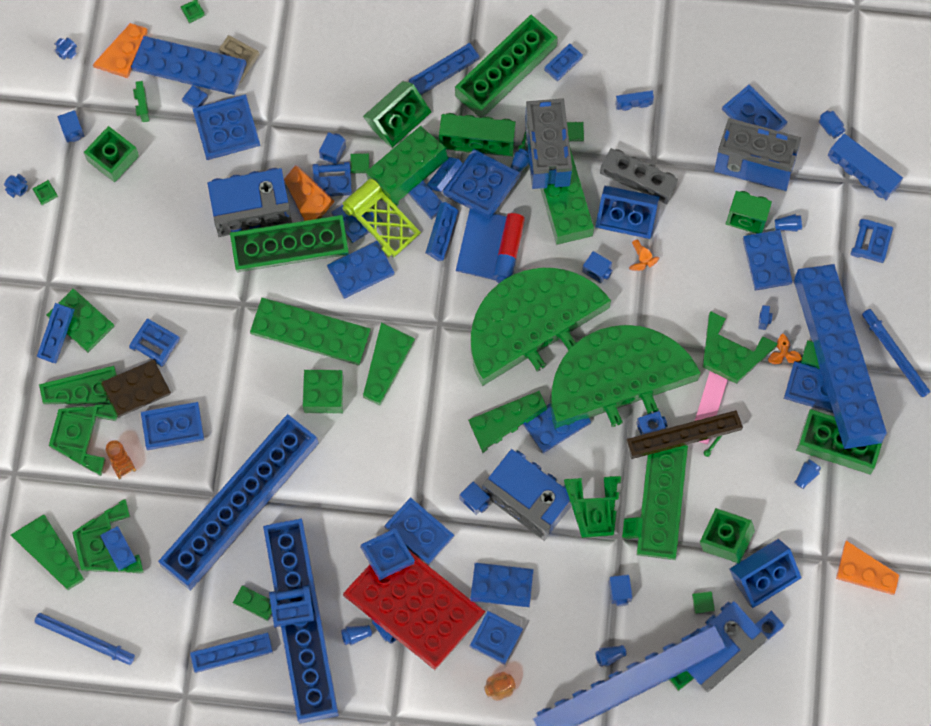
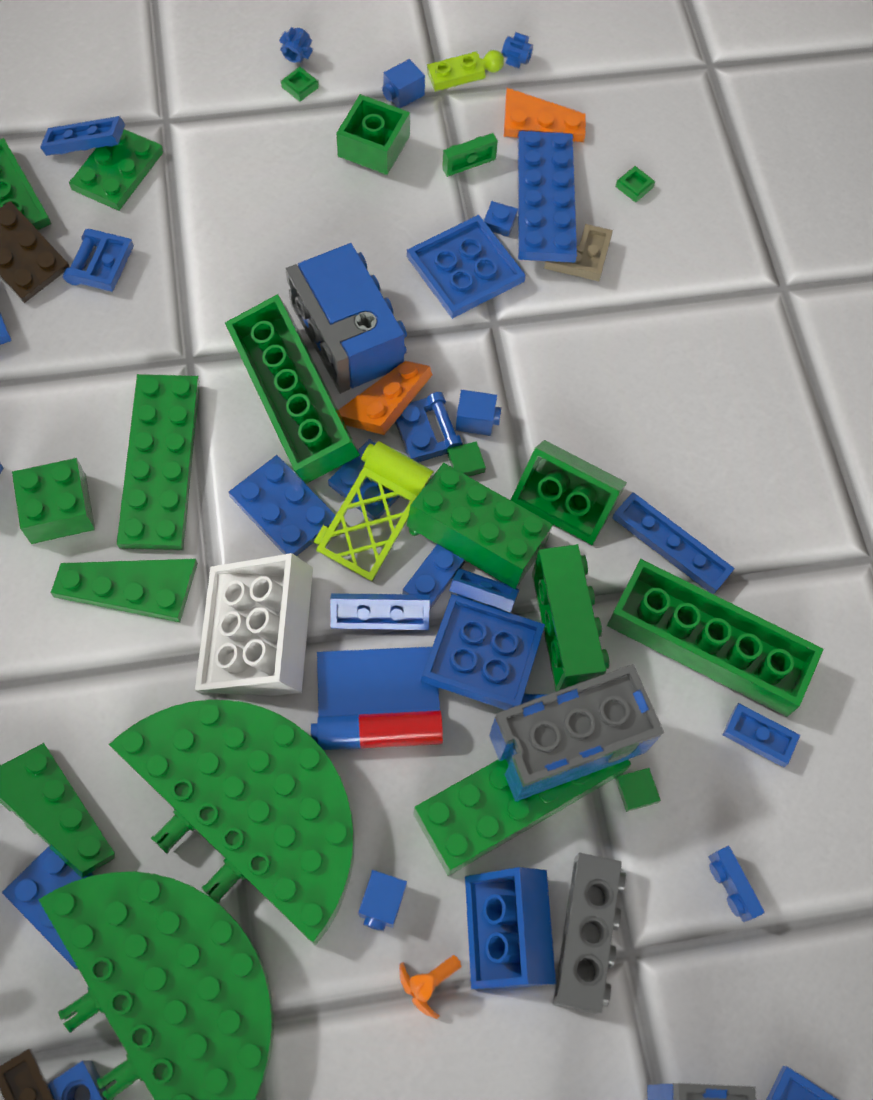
camera: 70 degrees right, 5 degrees down
(67, 87) = (463, 69): none -> lime plate
(431, 299) = (255, 627): none -> white slope

